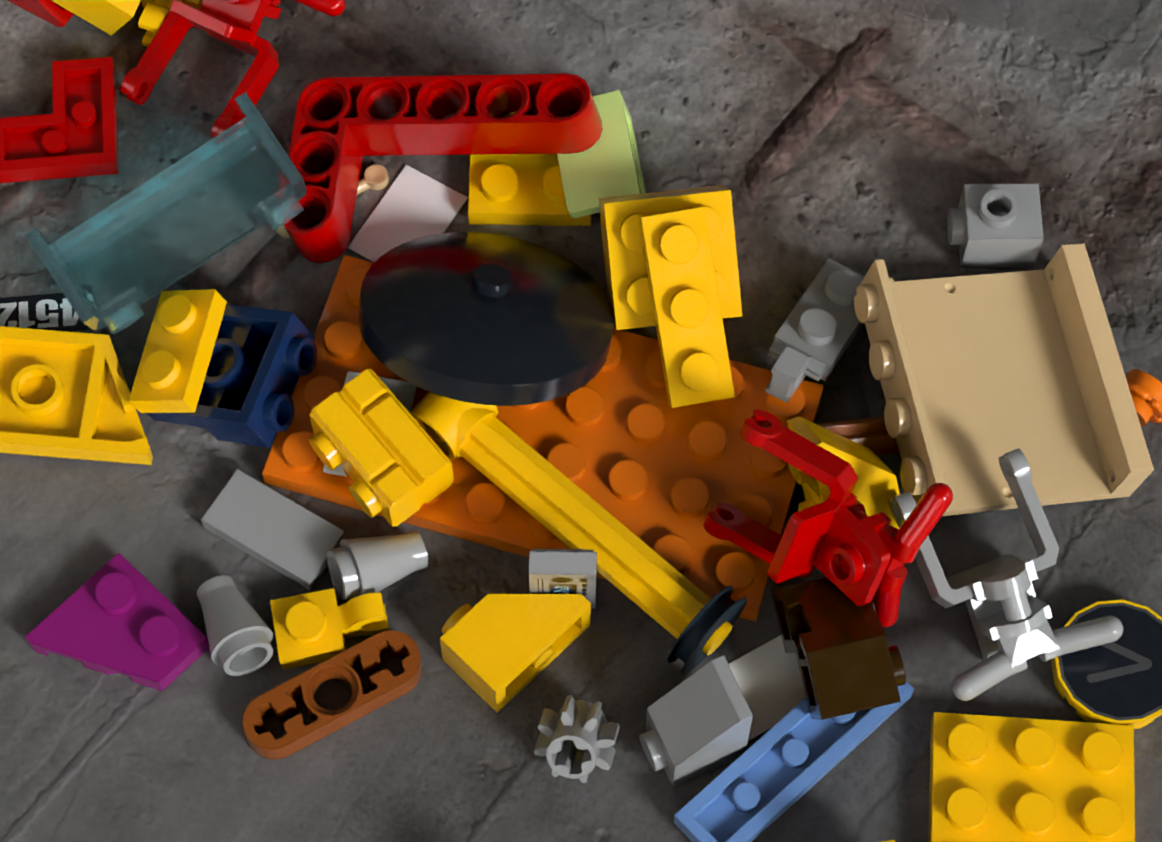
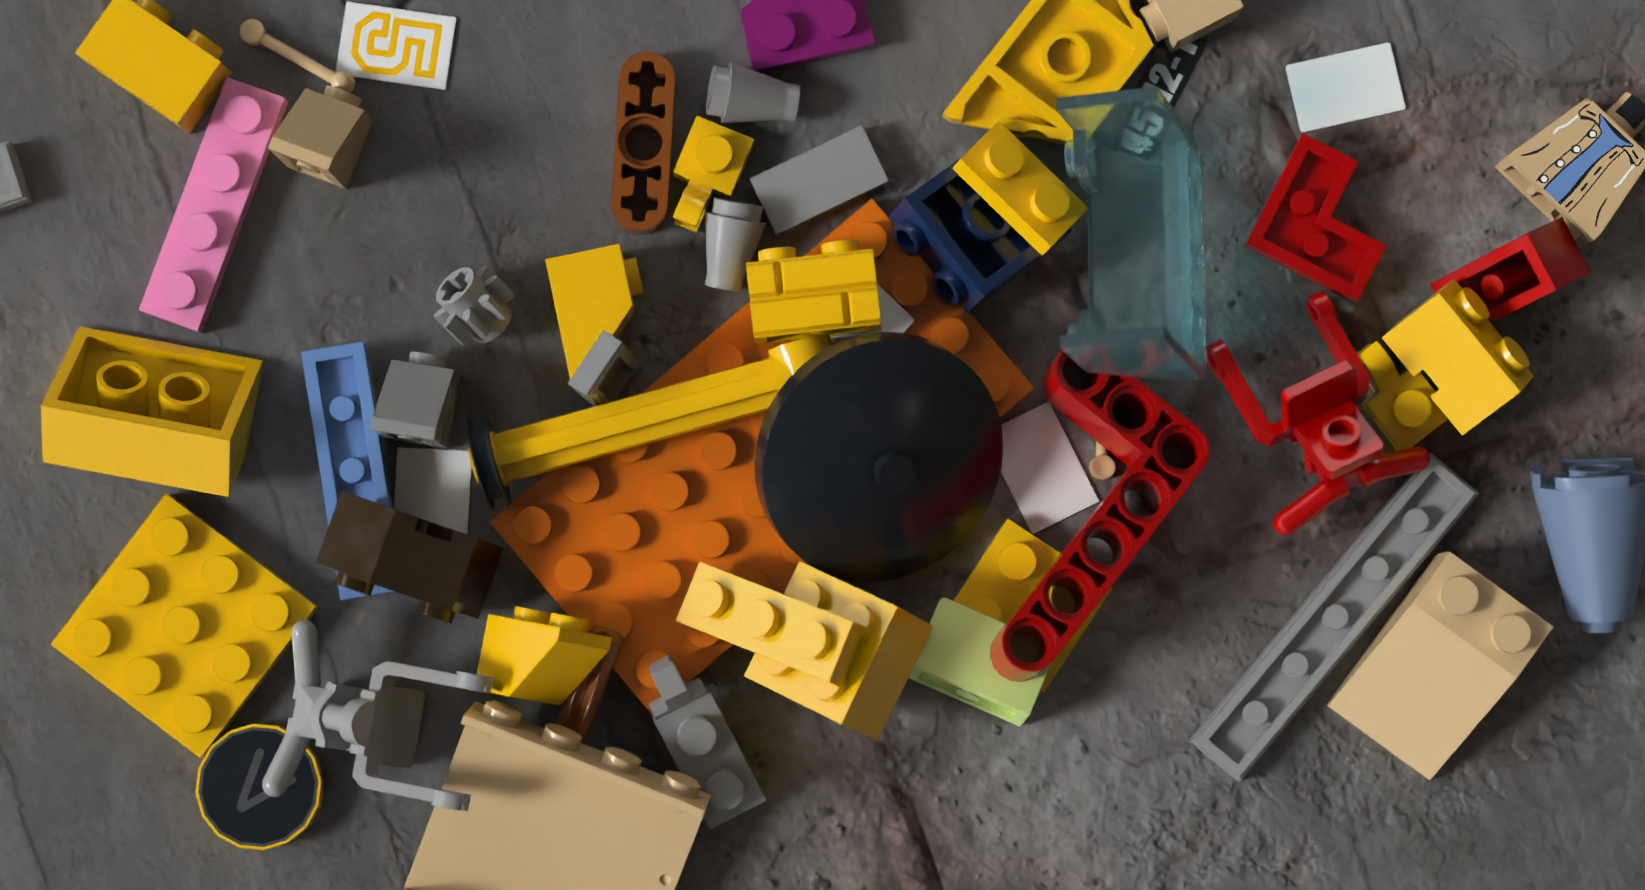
camera: 120 degrees right, 20 degrees up
(836, 536) = (449, 601): red piece -> none

